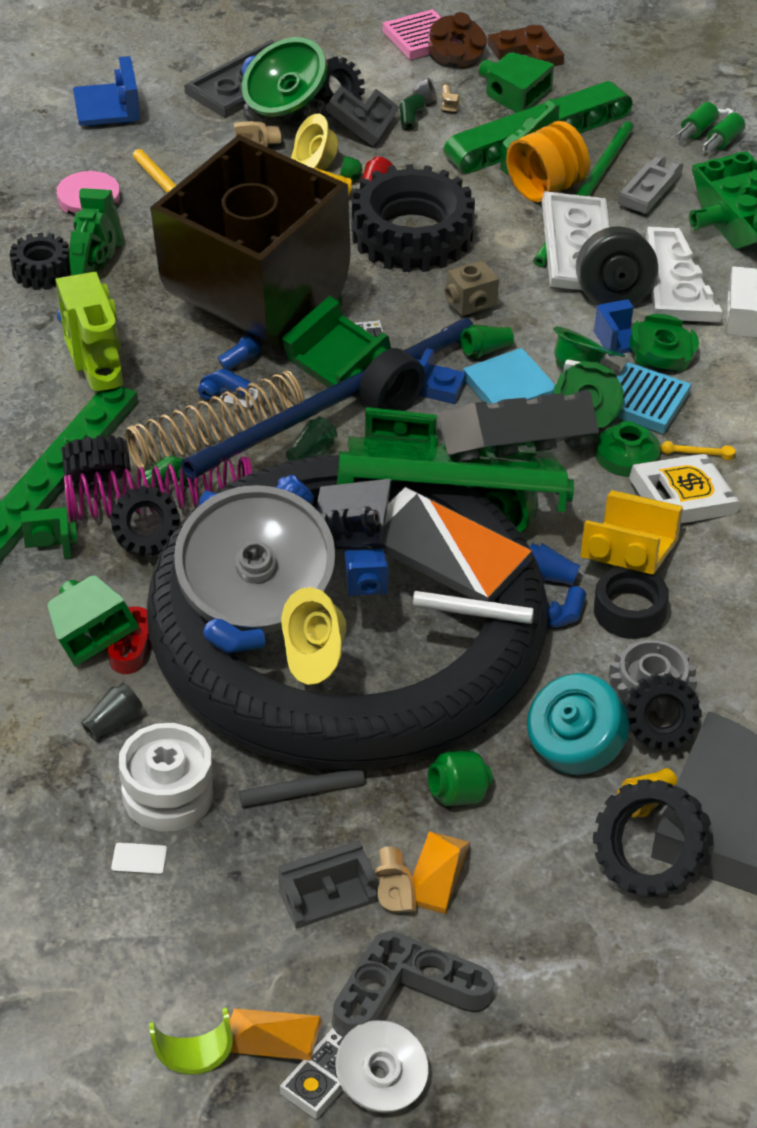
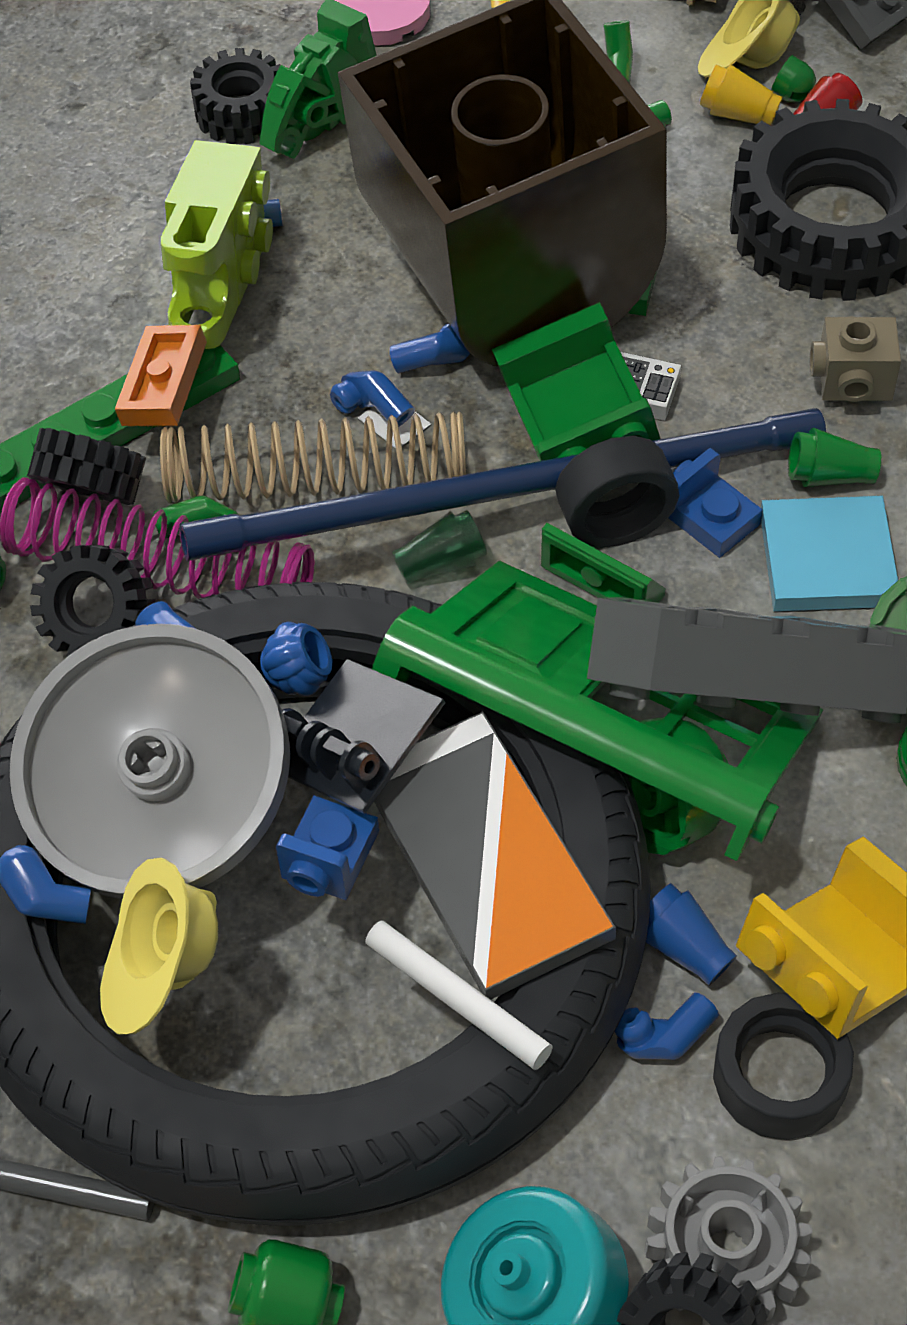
camera: 30 degrees right, 10 degrees up
(107, 403) = (161, 375): none -> orange plate

